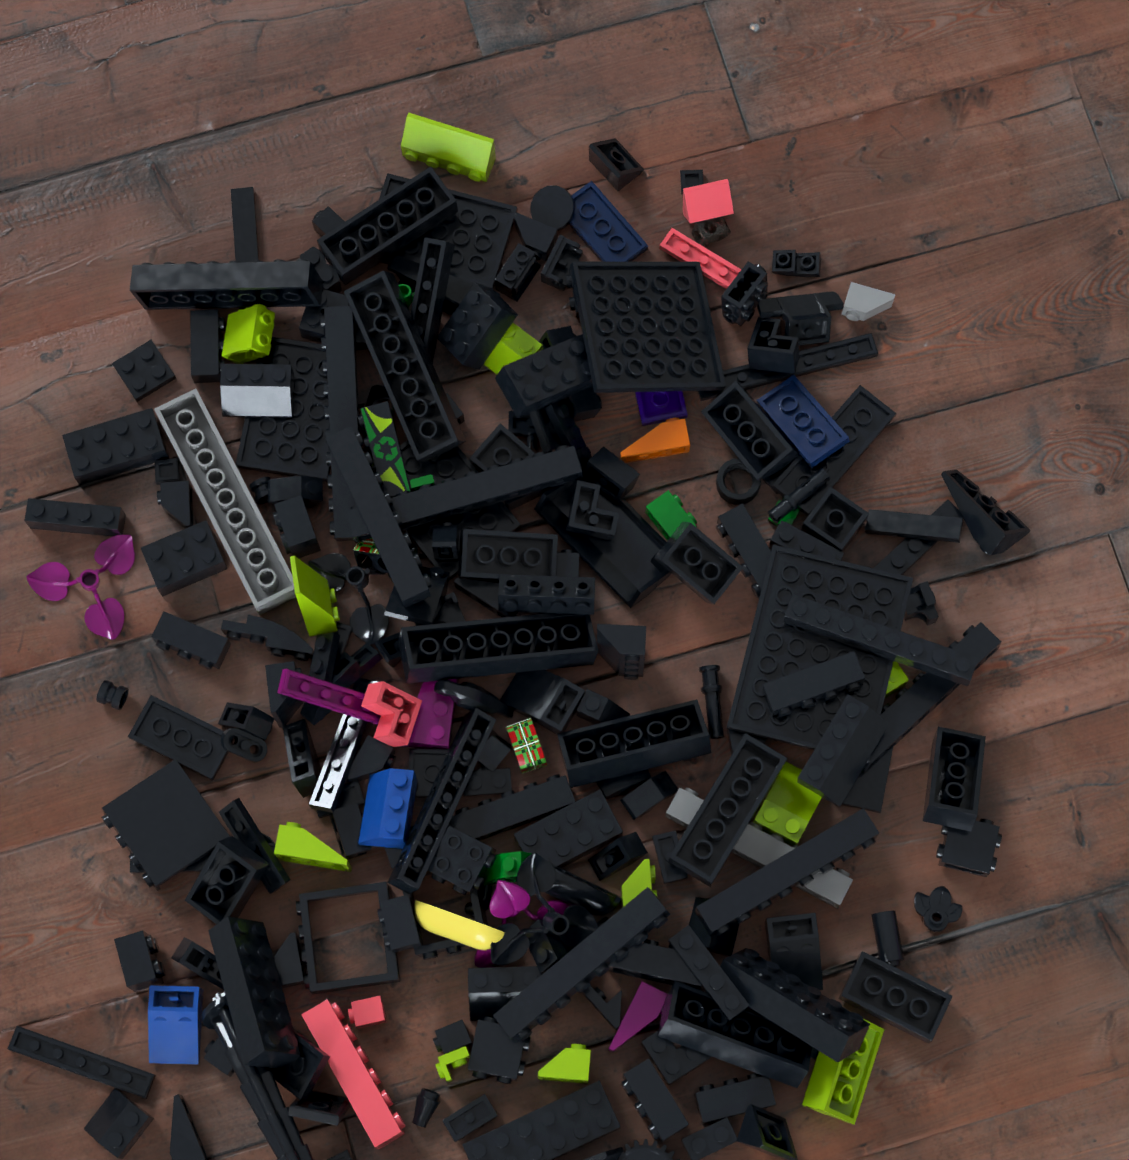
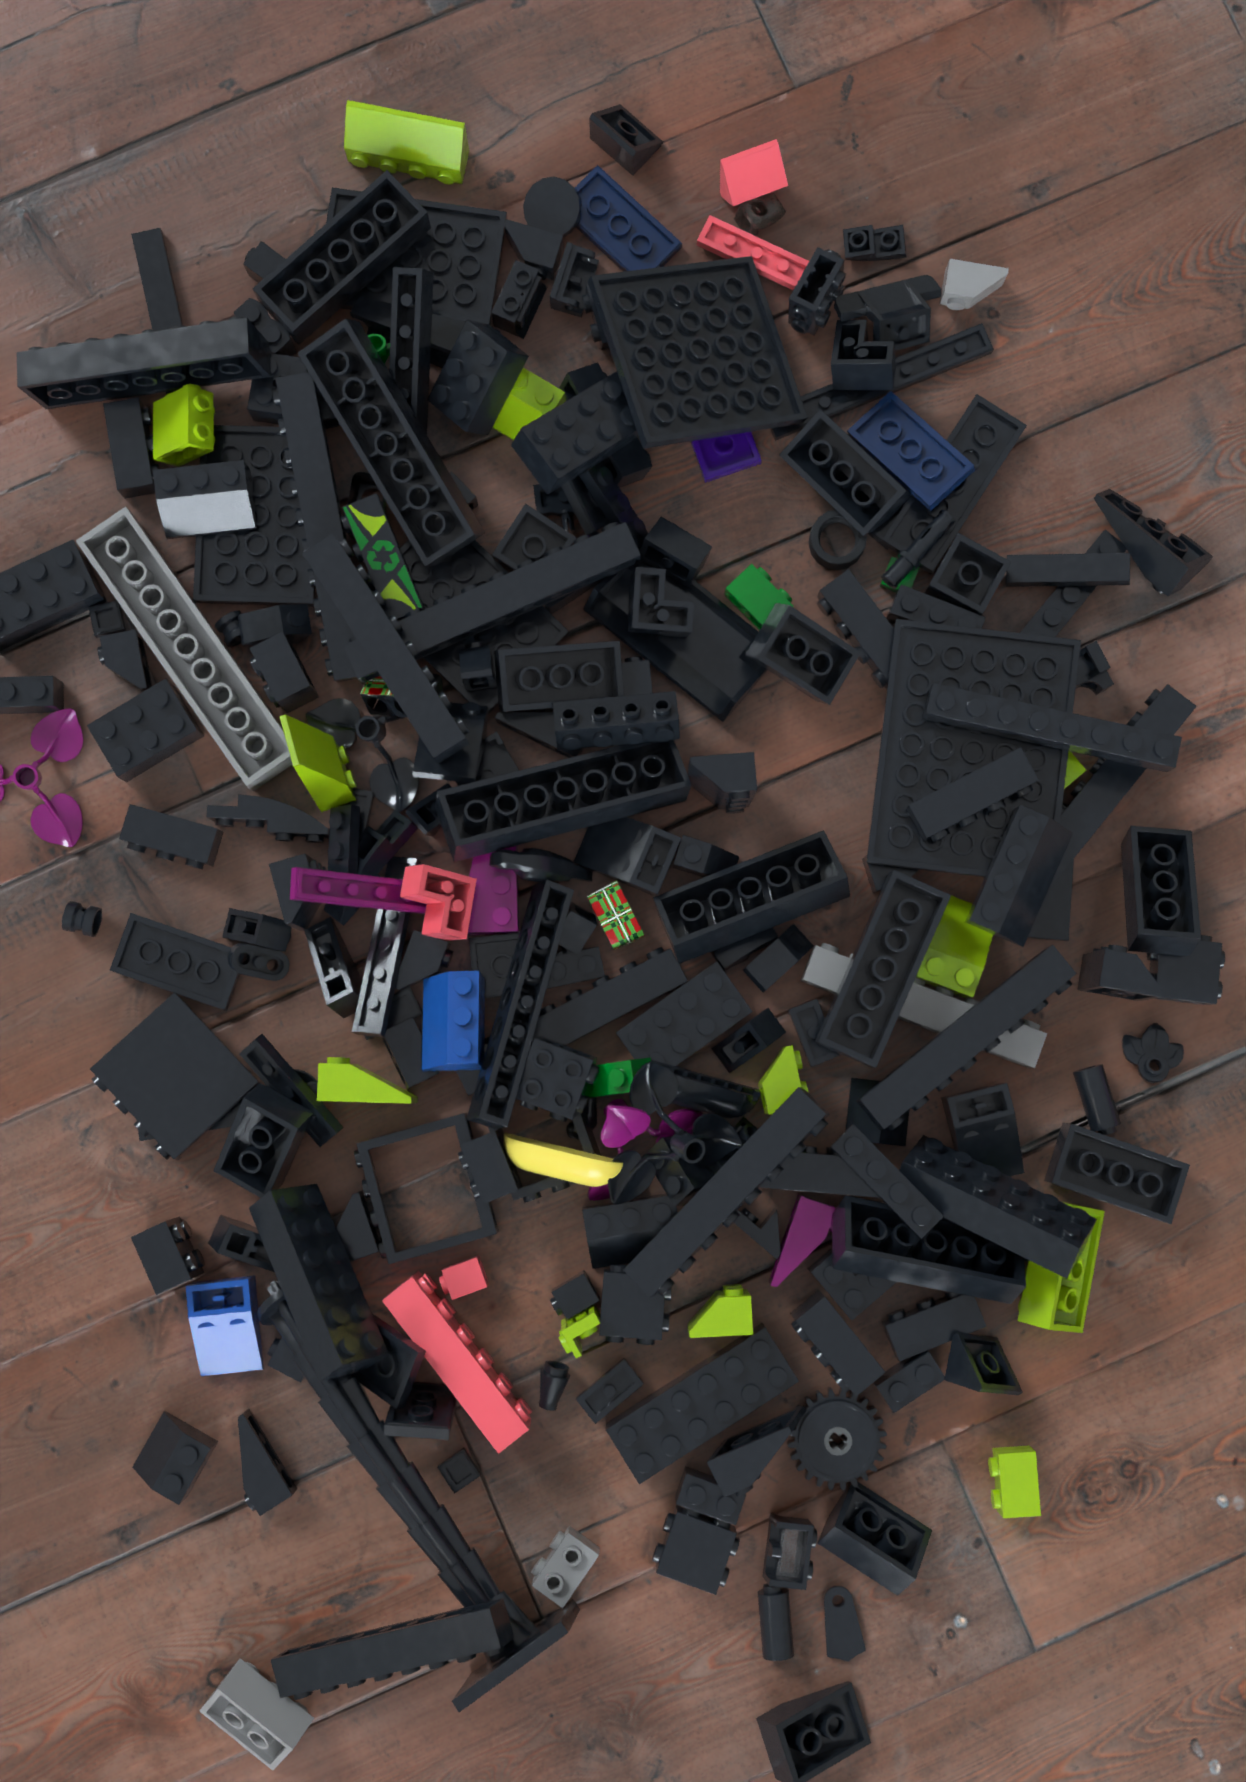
camera: 10 degrees left, 10 degrees up
(81, 1062) = (116, 1385): black tile -> none
(144, 370) = (56, 490): black plate -> none
(418, 482) = (432, 594): green tile -> none
(664, 440) = (736, 498): orange slope -> none
(690, 178) = (724, 146): black tile -> none
(712, 690) = (838, 814): black pin -> none
(912, 840) = (1117, 974): none -> black slope

